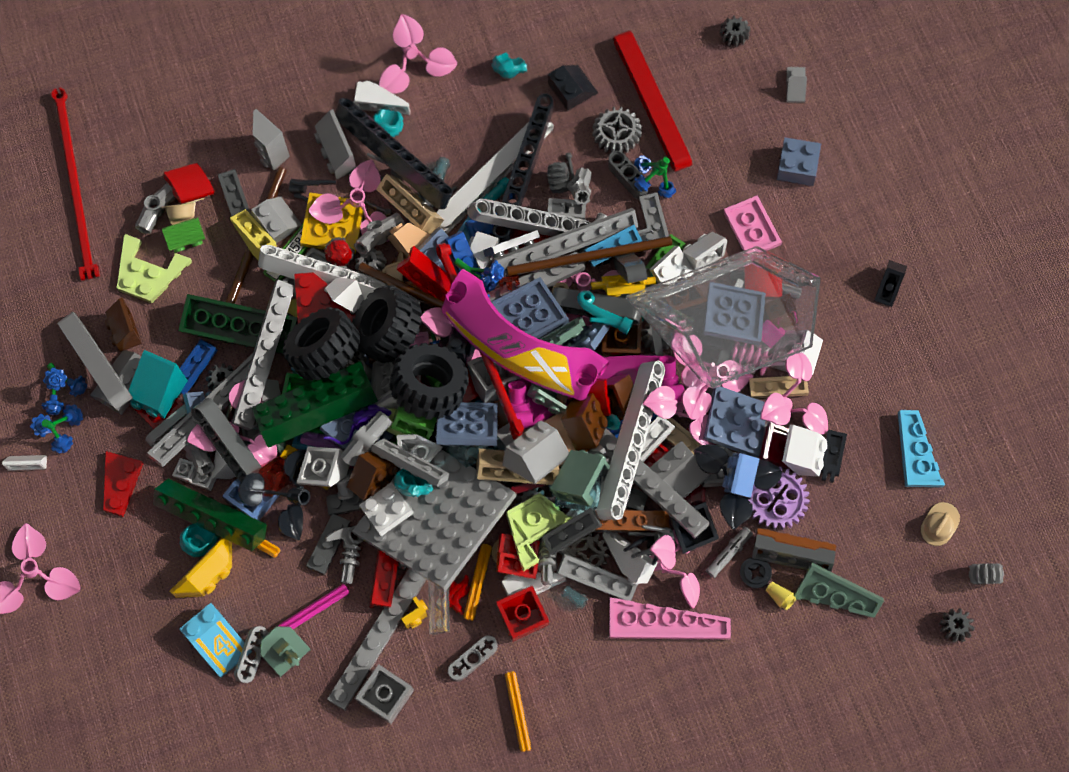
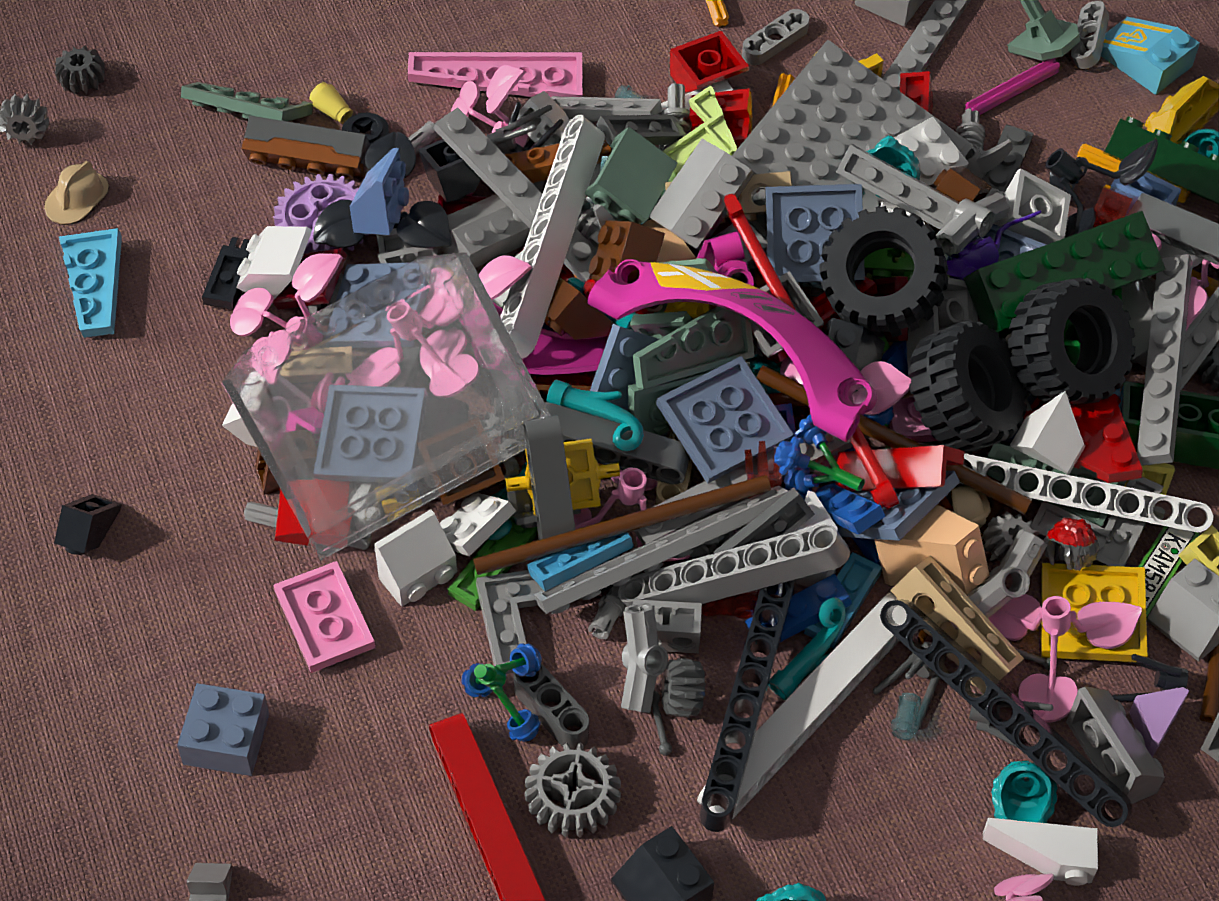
camera: 175 degrees right, 15 degrees down
(309, 165) = (1155, 713): none -> lavender slope

